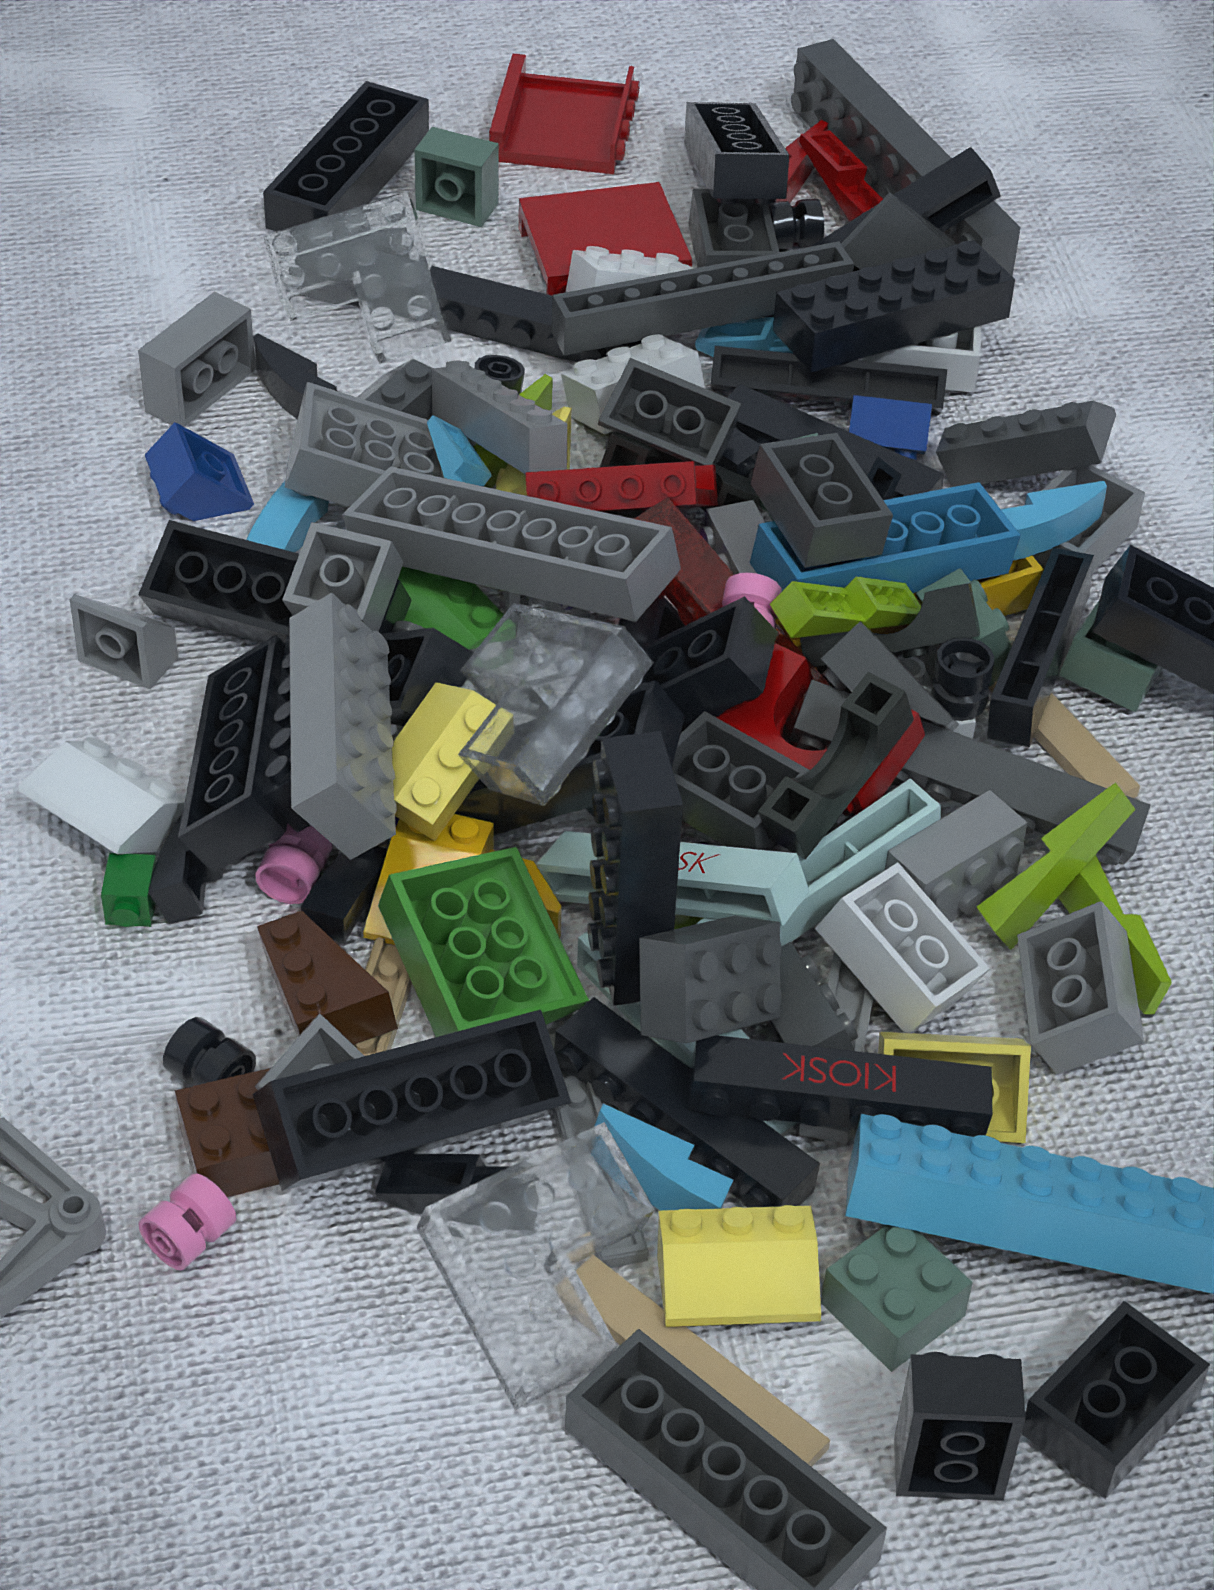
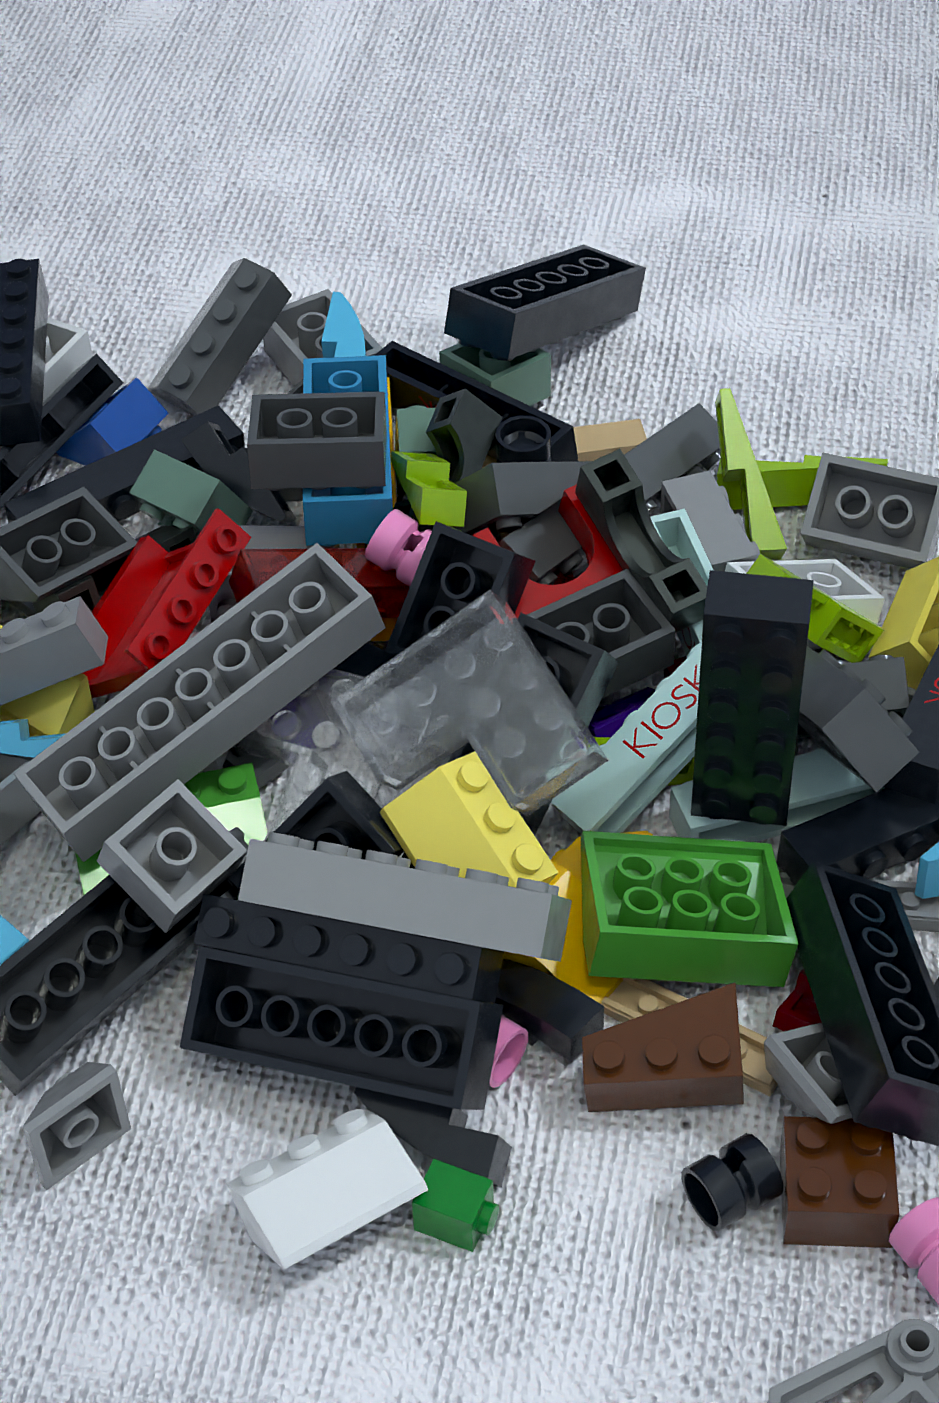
camera: 65 degrees left, 0 degrees up
(865, 957) = (831, 622): none -> lime slope

